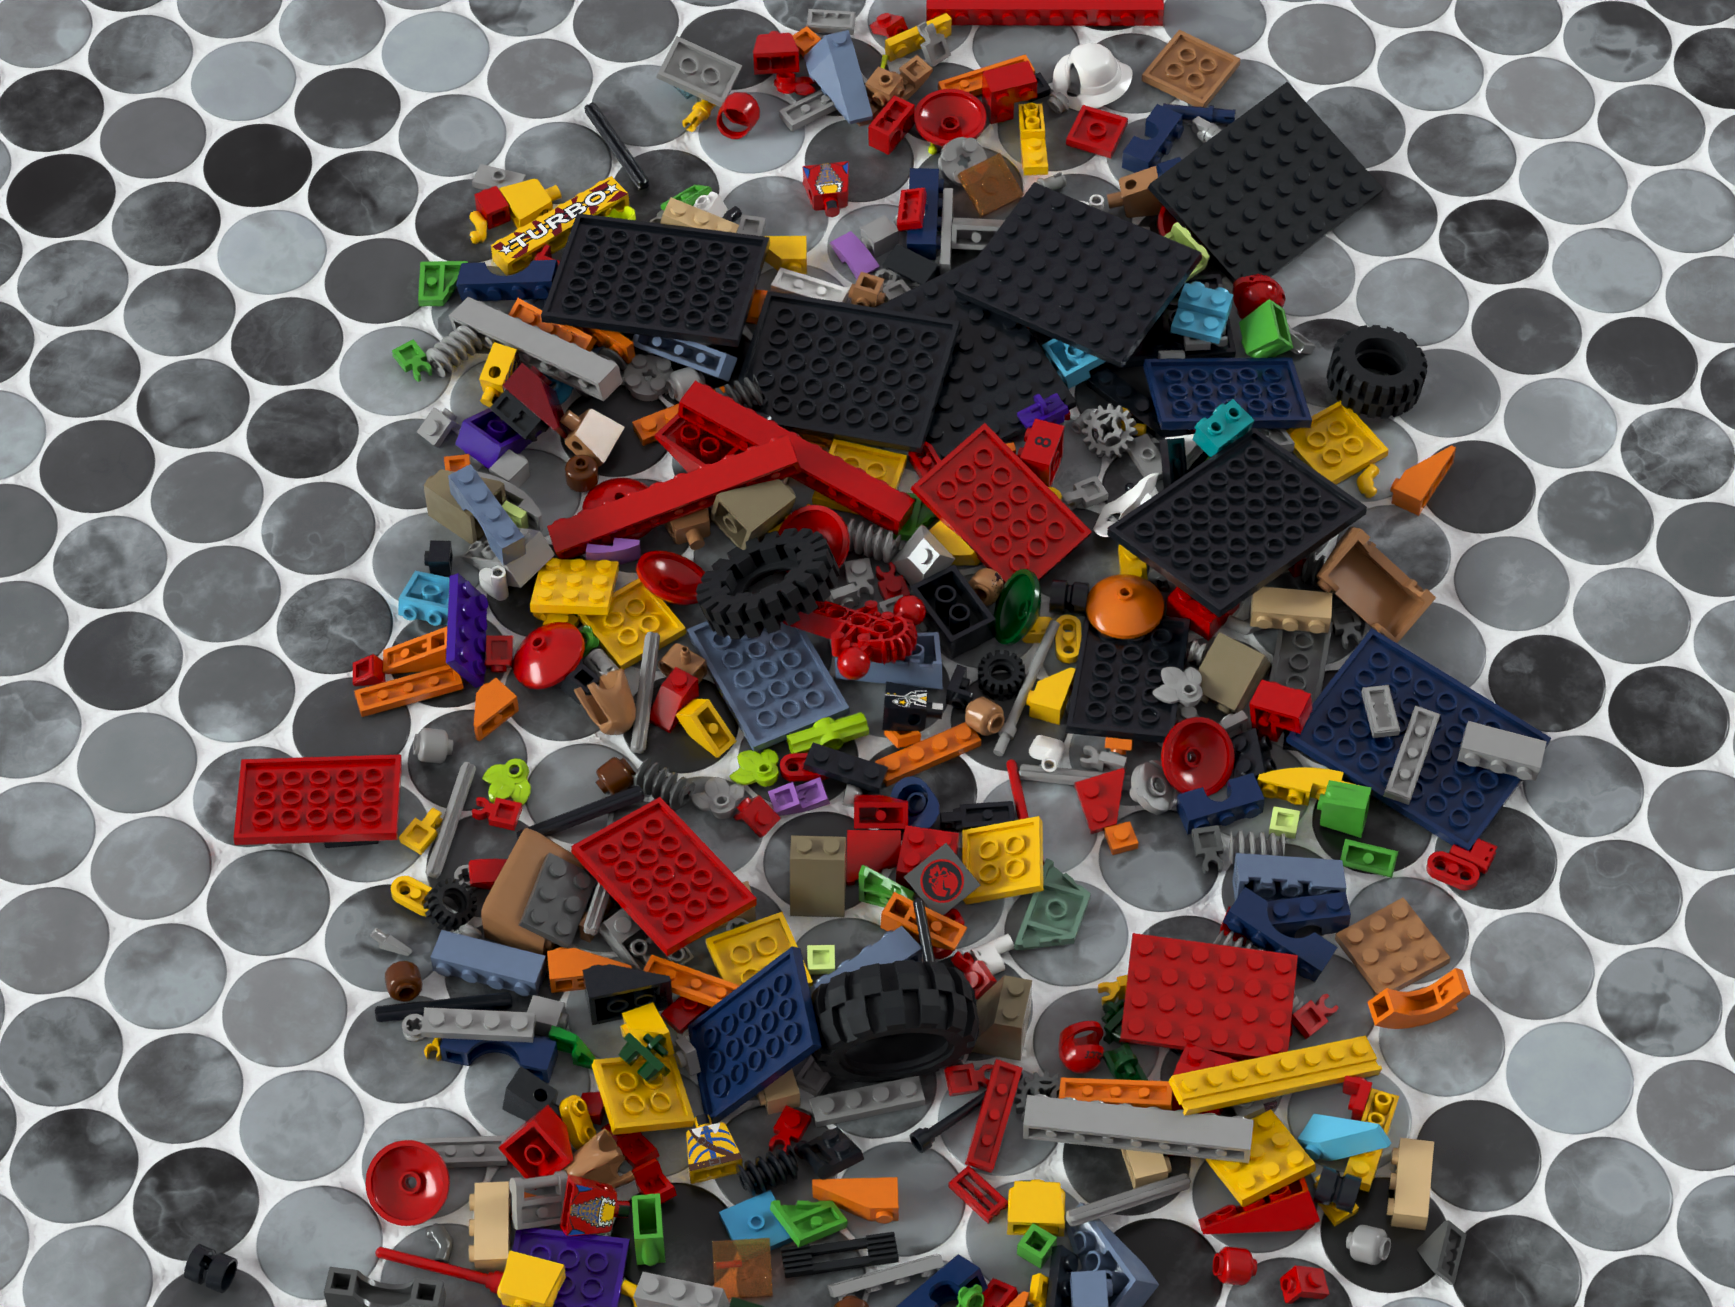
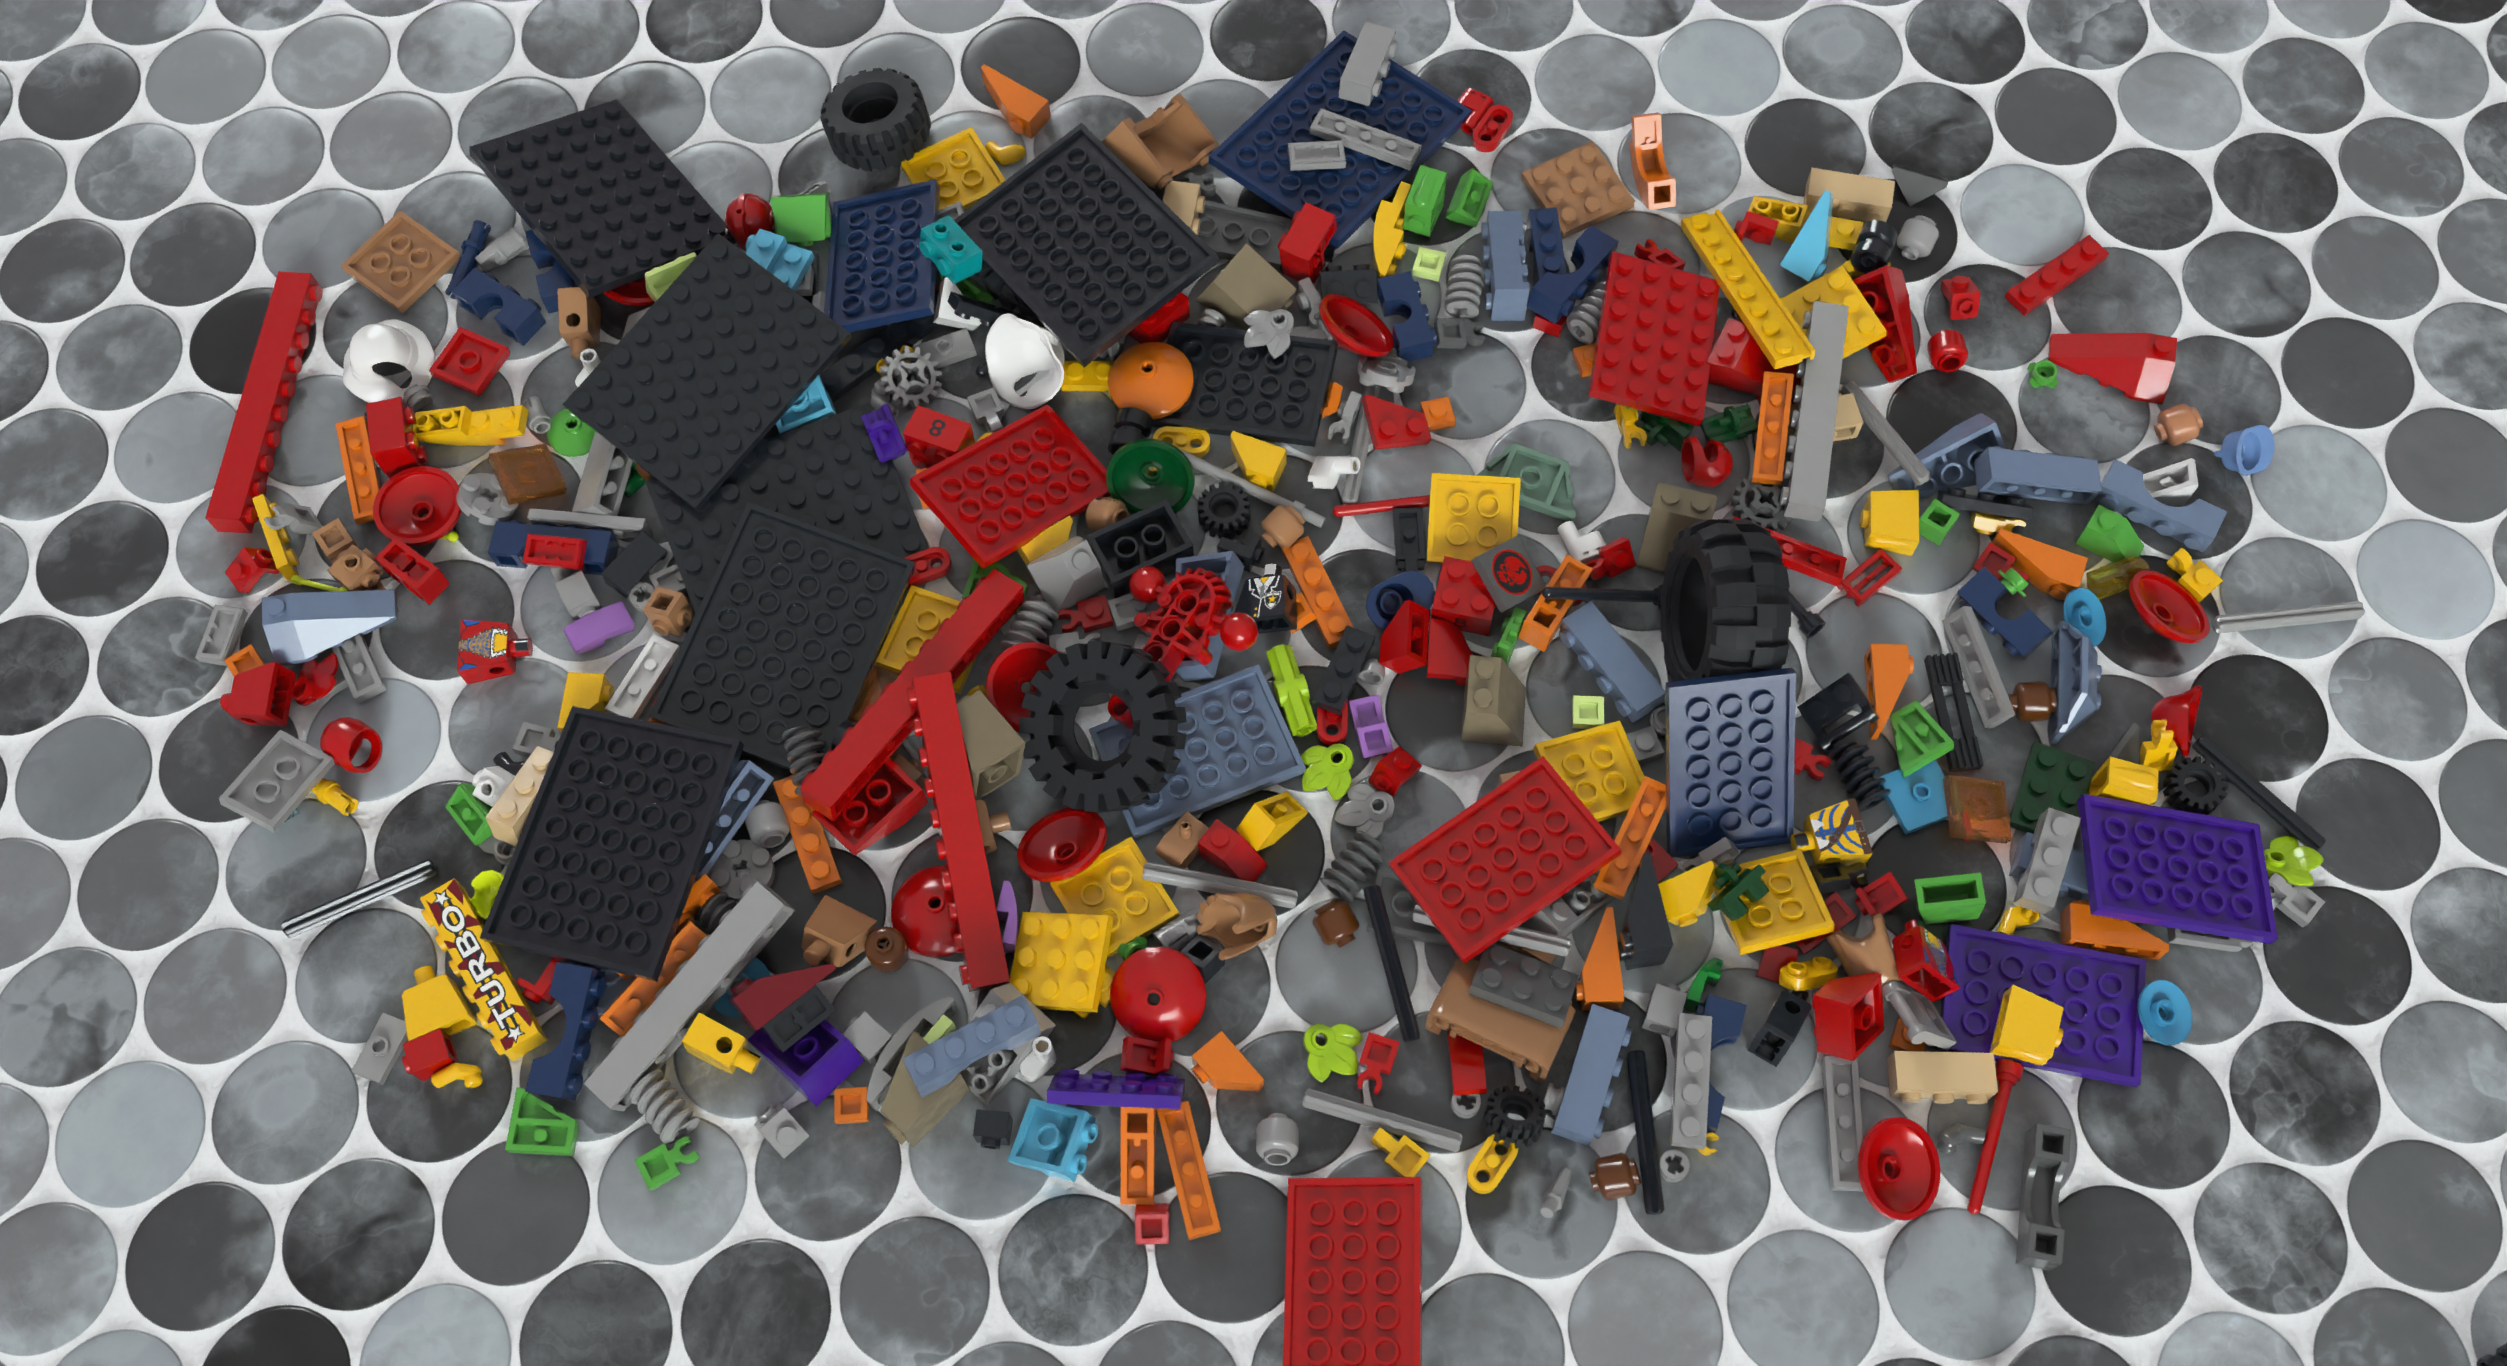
camera: 85 degrees left, 10 degrees up
(672, 1149) = (1835, 877): none -> black plate

